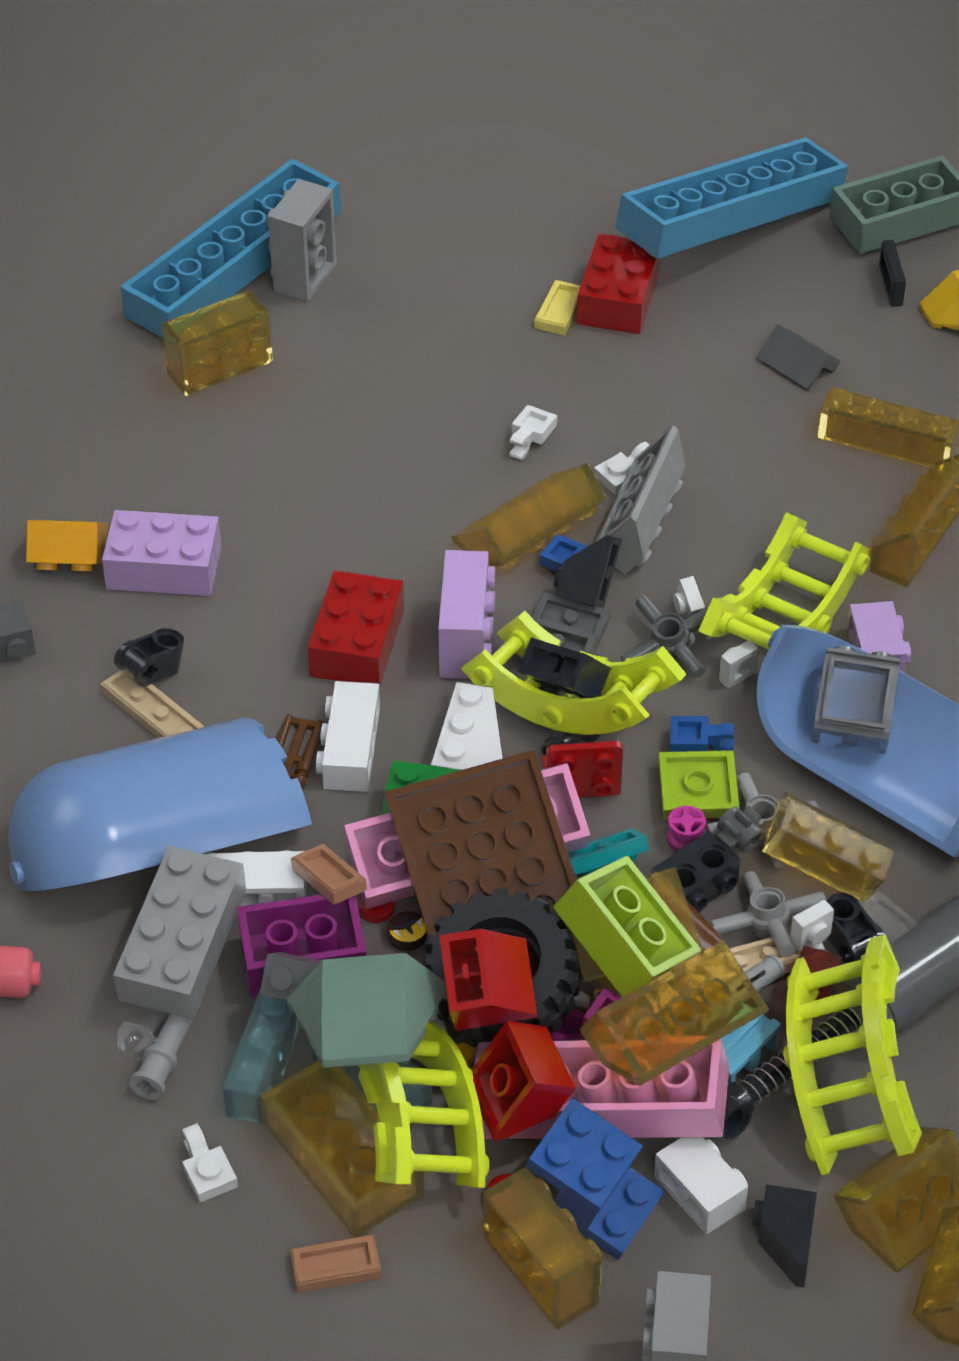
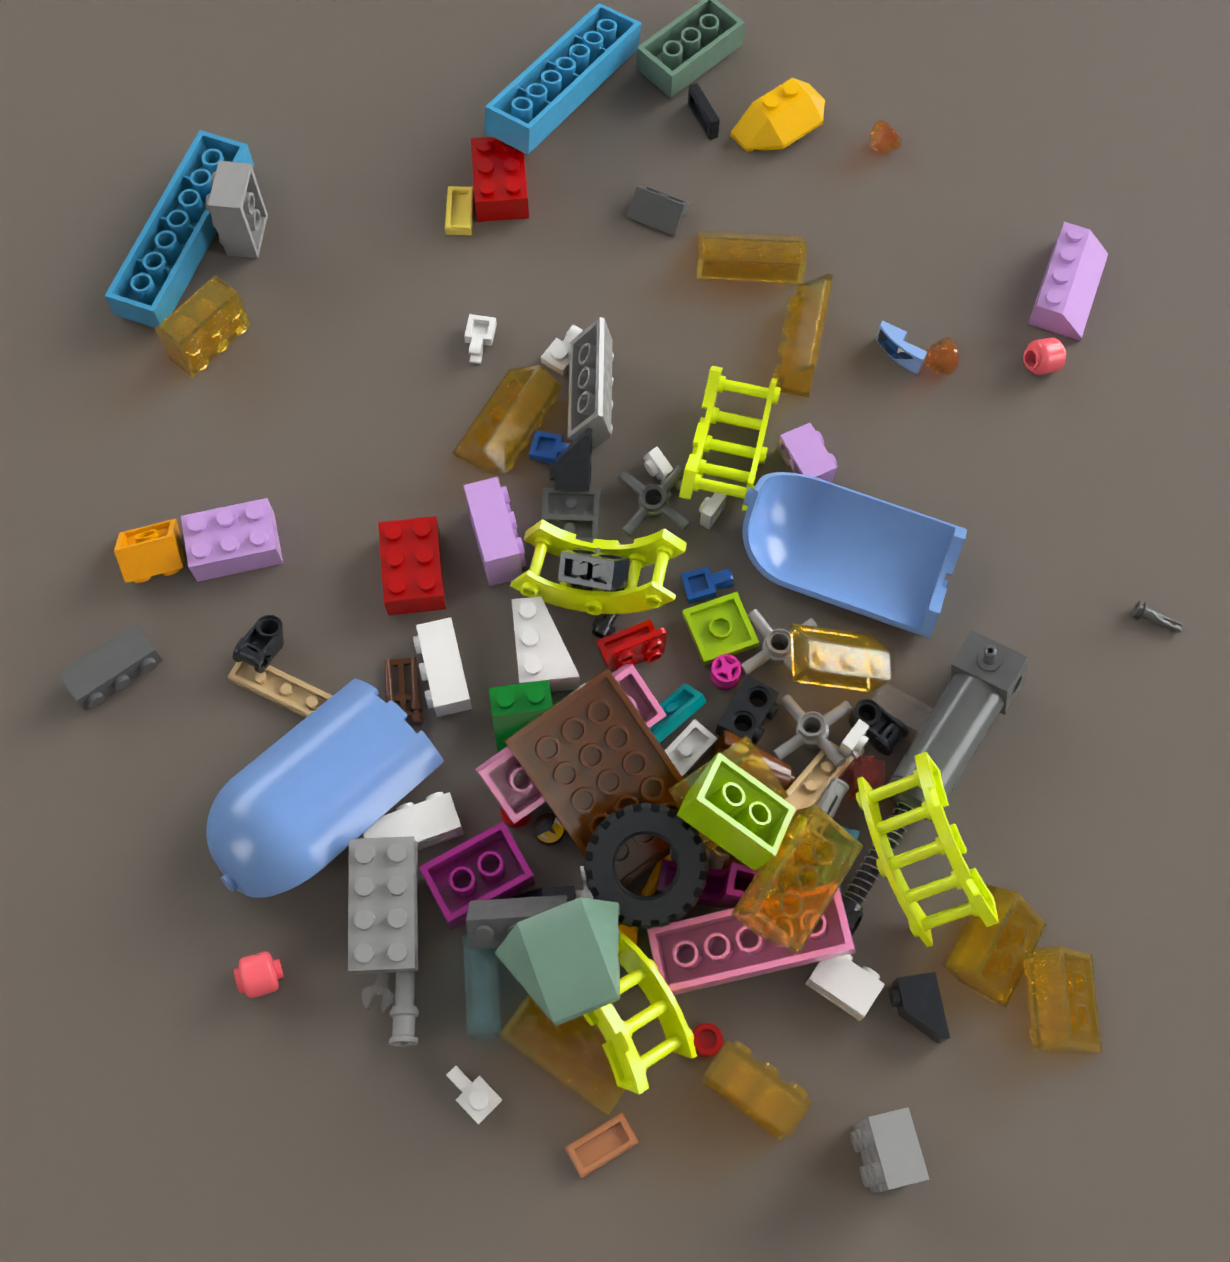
camera: 20 degrees left, 20 degrees up
(328, 874) = (478, 813): nougat tile -> none
(487, 978) = (650, 896): red slope -> none
(520, 1079) = (697, 964): red slope -> none
(593, 1172) = (774, 1018): blue bracket -> none
(740, 829) = (770, 667): dark grey gear -> none
(856, 696) = (815, 522): window -> none

